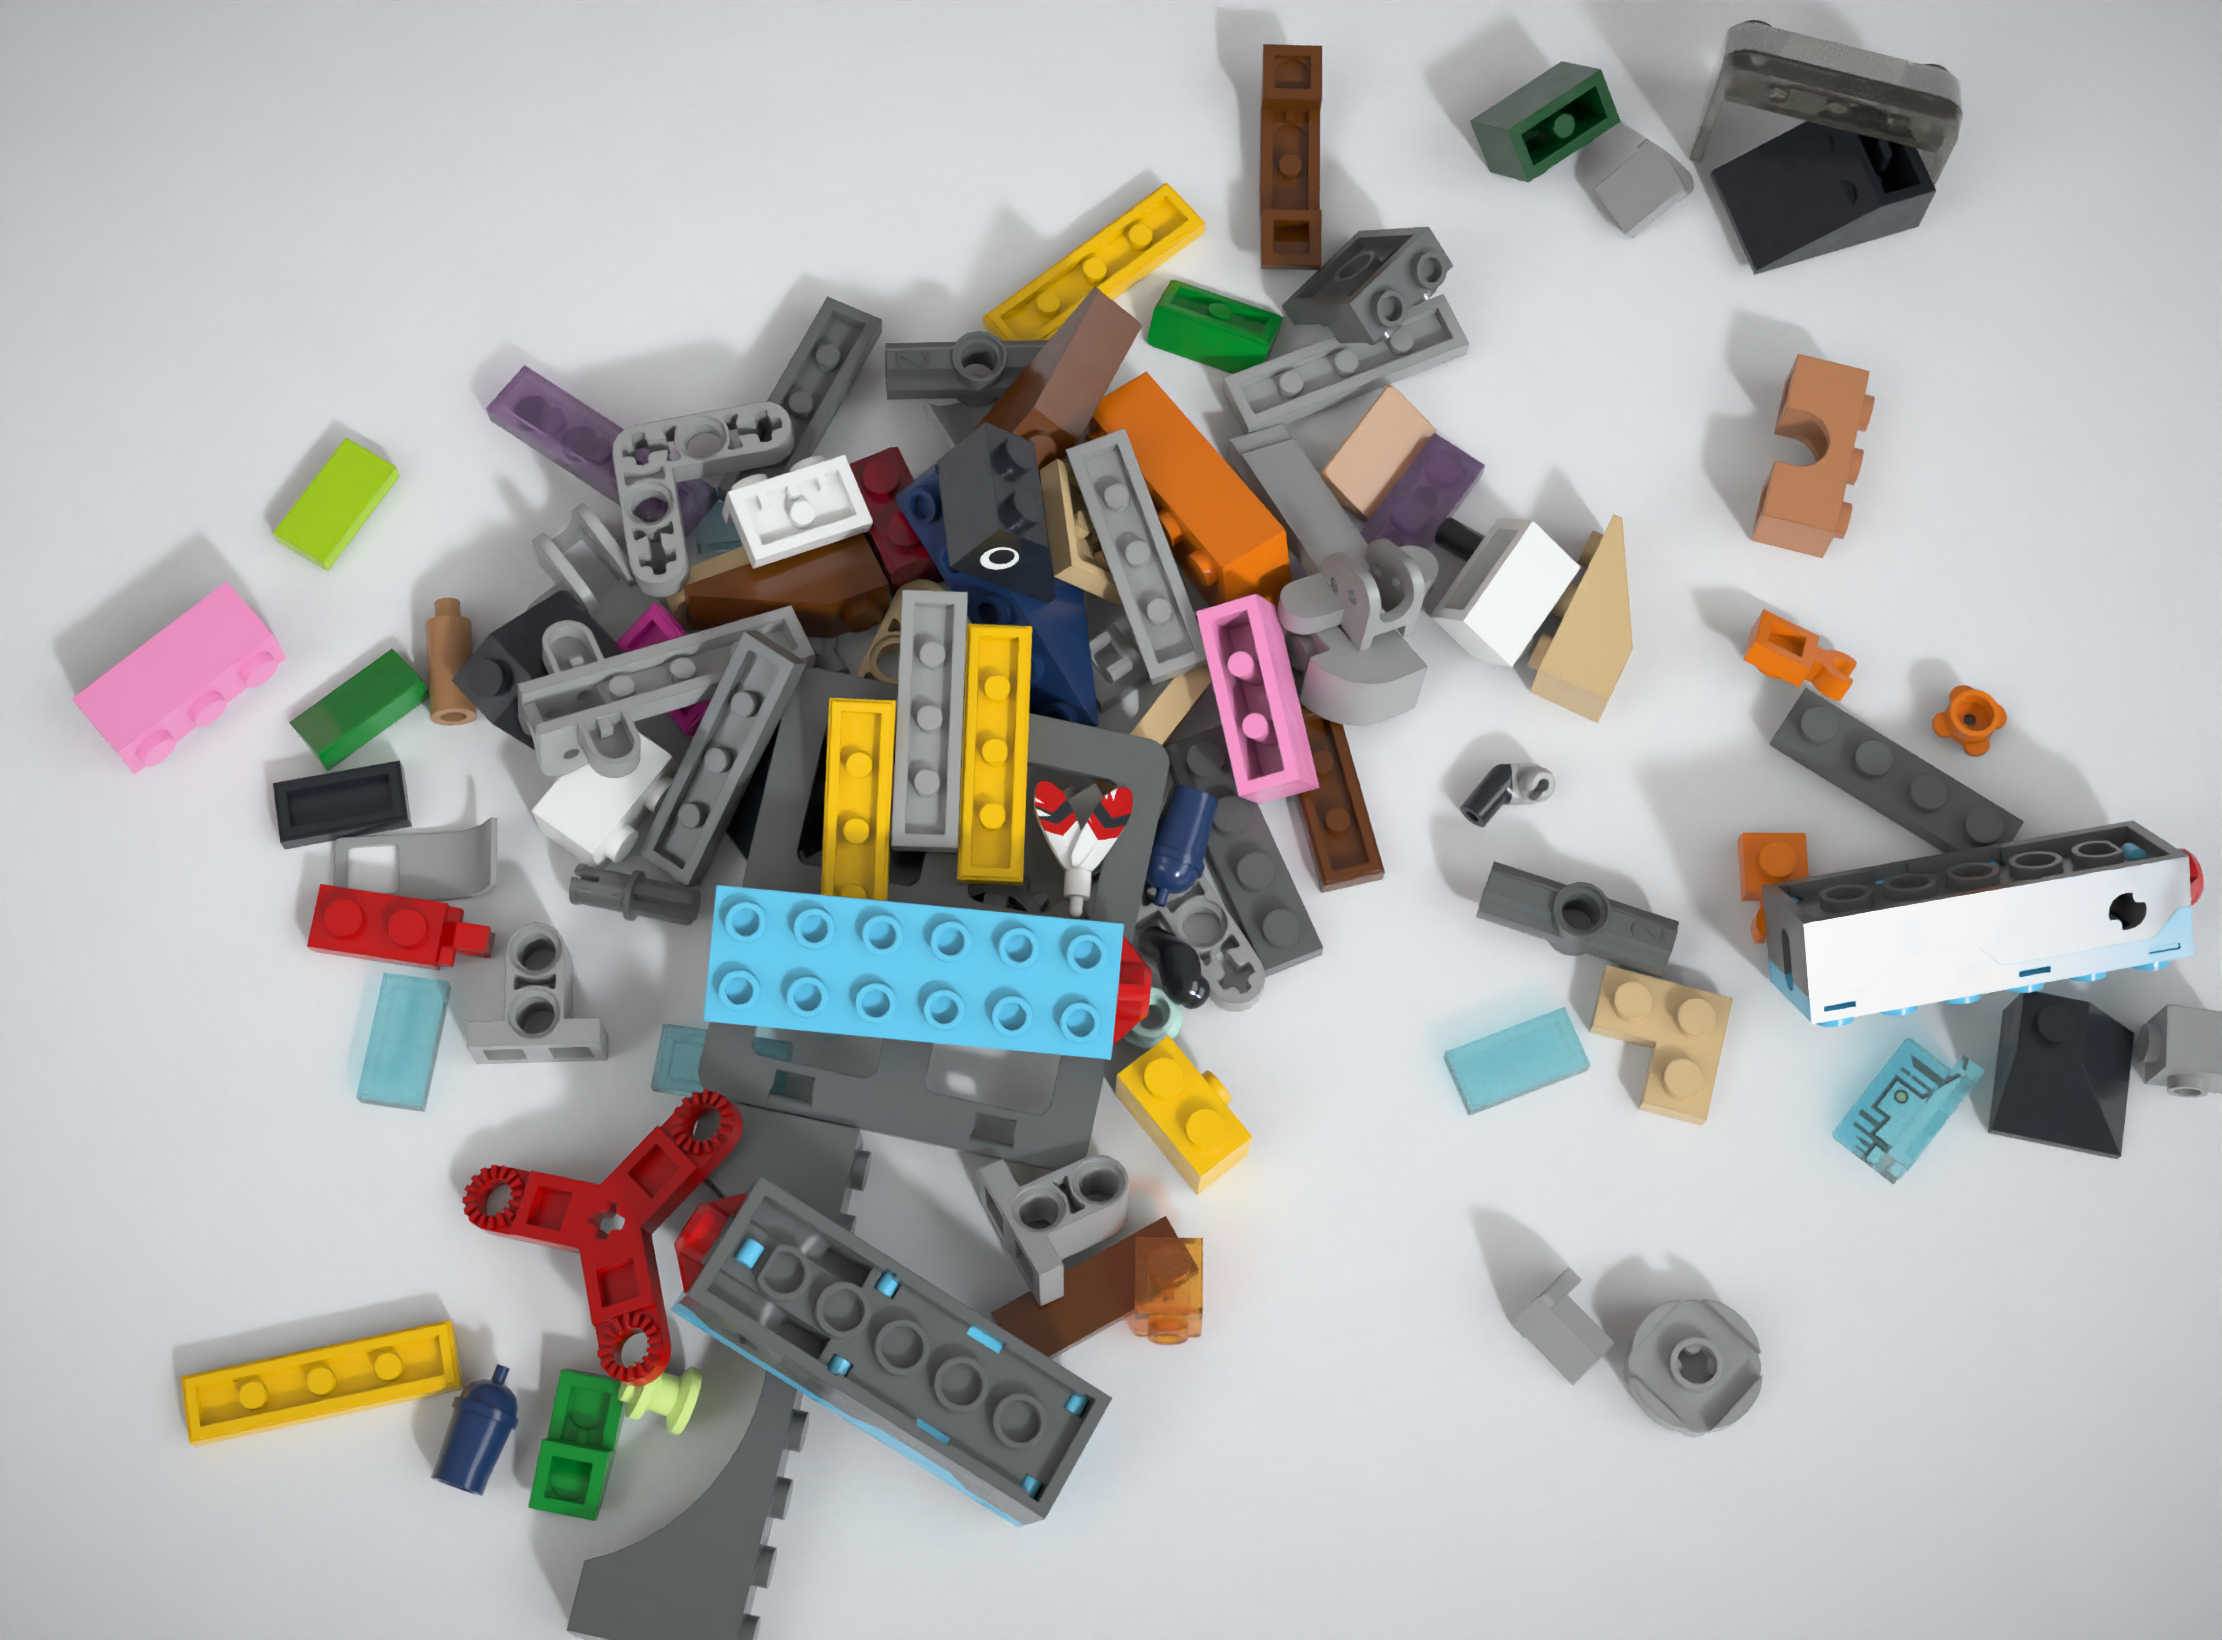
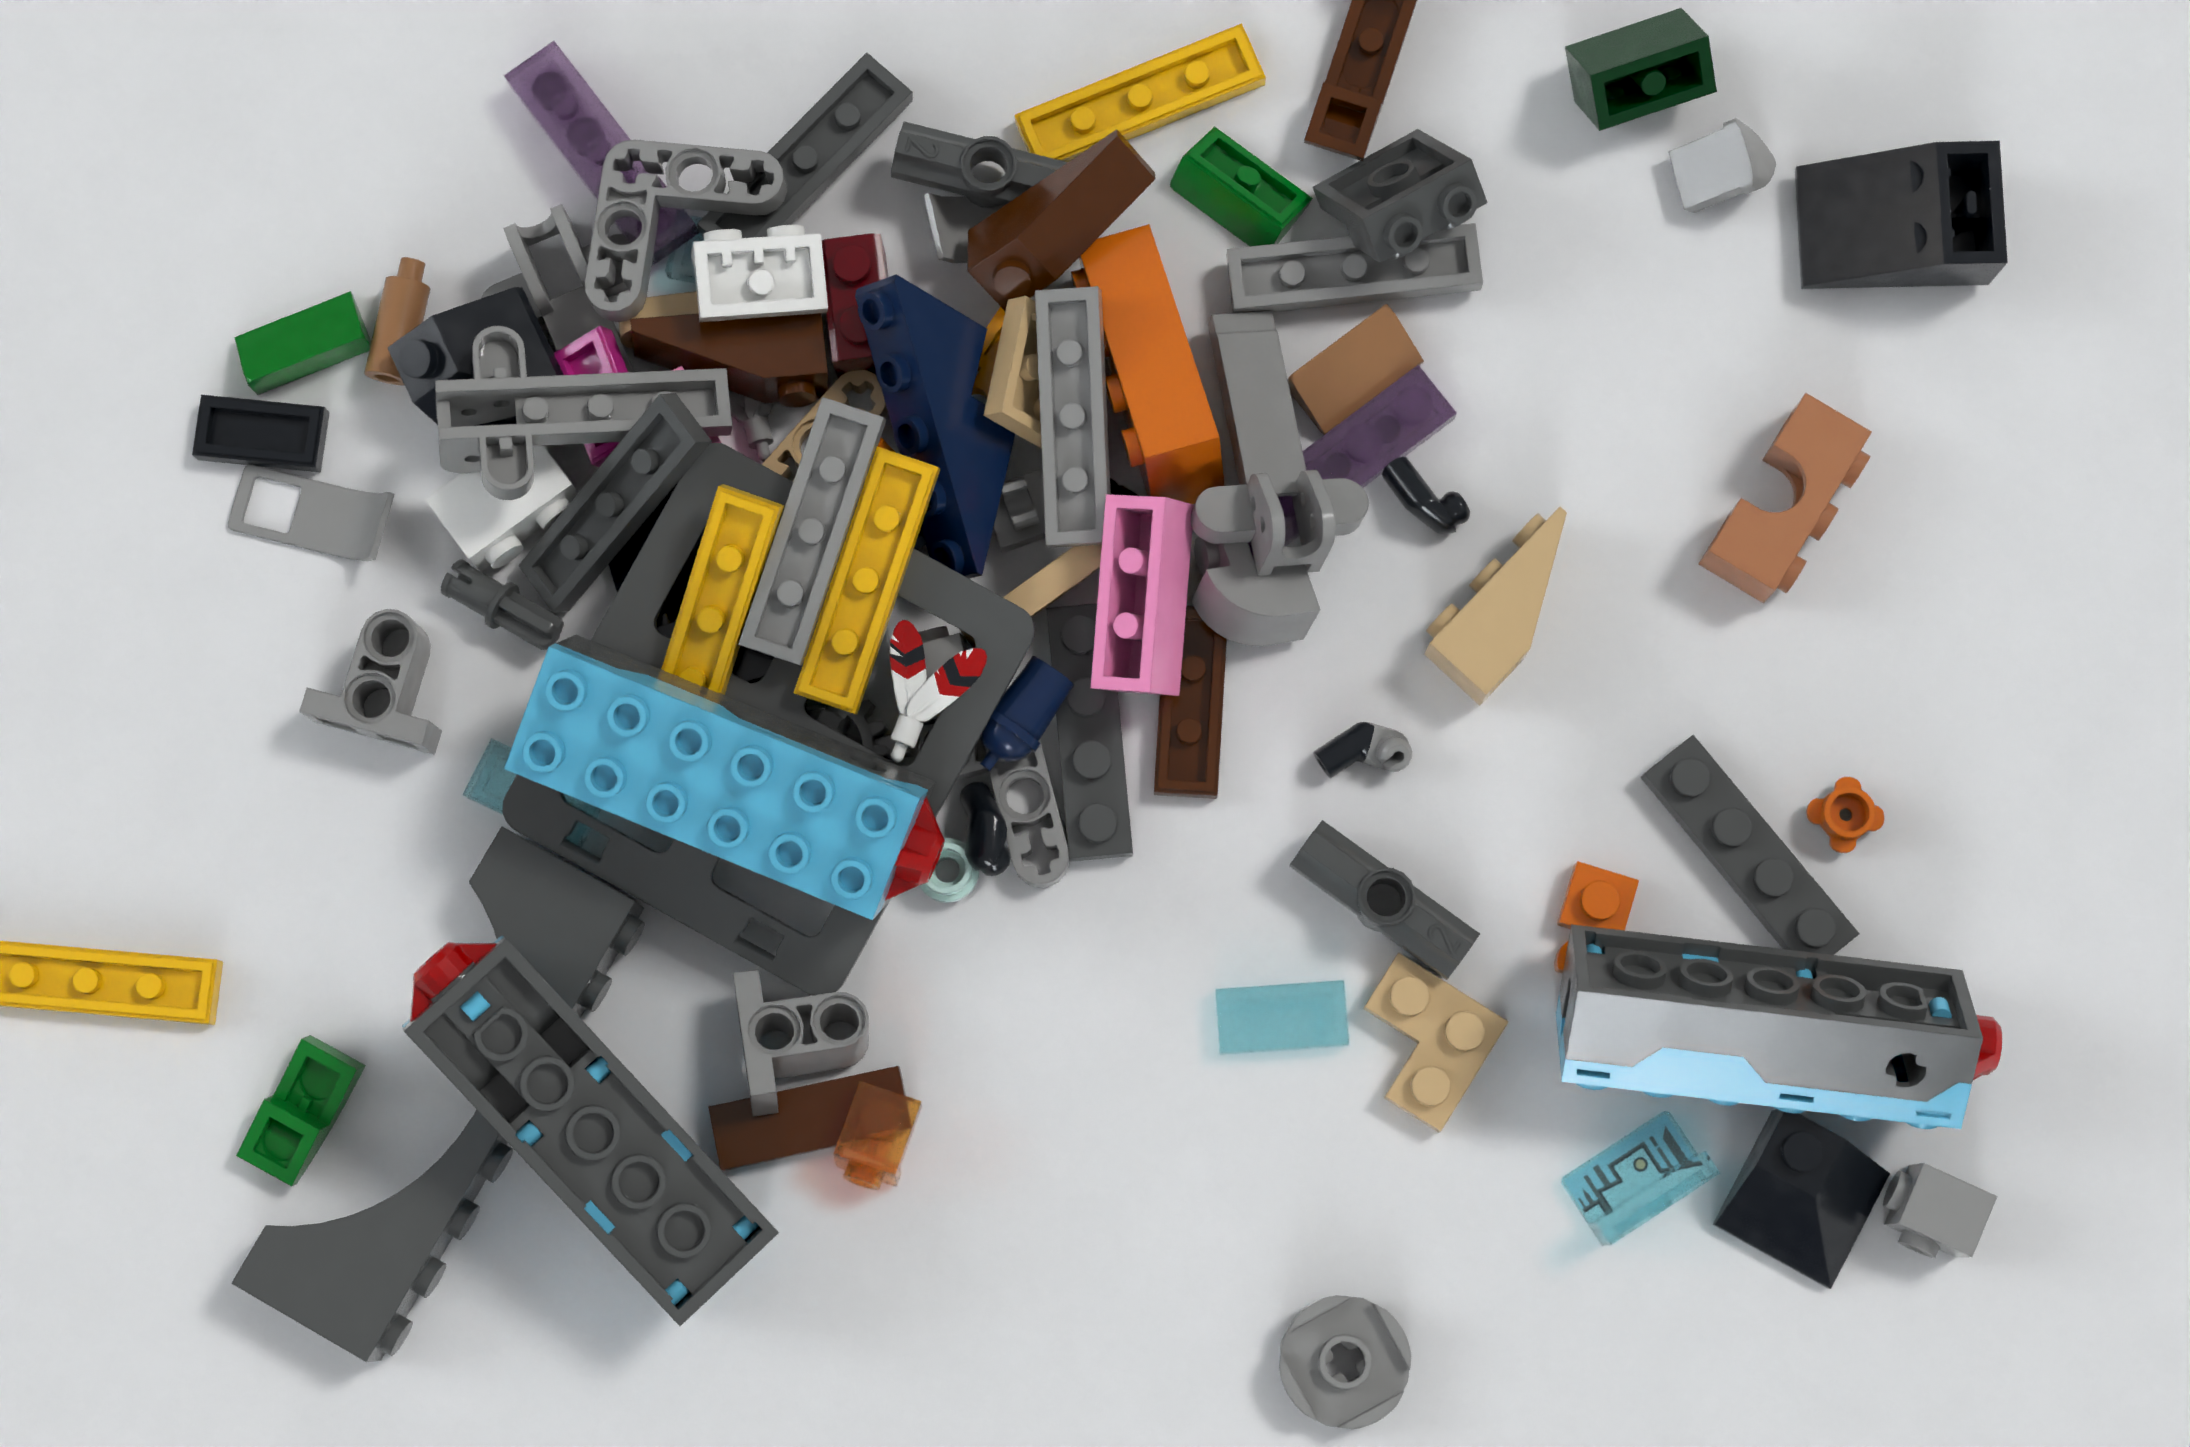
camera: 25 degrees right, 10 degrees up
(181, 678) = (143, 267): bright pink brick -> none
(336, 504) = (339, 129): lime tile -> none
(394, 929) = (272, 570): red hinge -> none
(404, 1042) = (252, 681): clear light blue tile -> none
(477, 1433) = (210, 1074): dark blue piece -> none
(620, 1265) = (375, 961): red piece -> none
(666, 1395) = (376, 1084): yellowish green wheel -> none
(997, 512) = (942, 343): black slope -> none
(1183, 1113) = (944, 975): yellow brick -> none
(1505, 592) = (1426, 553): white brick -> none
(1563, 1329) = (1231, 1289): light grey tile -> none
(1792, 654) = (1690, 698): orange plate -> none
(1835, 88) = (1940, 129): clear smoke windscreen -> none

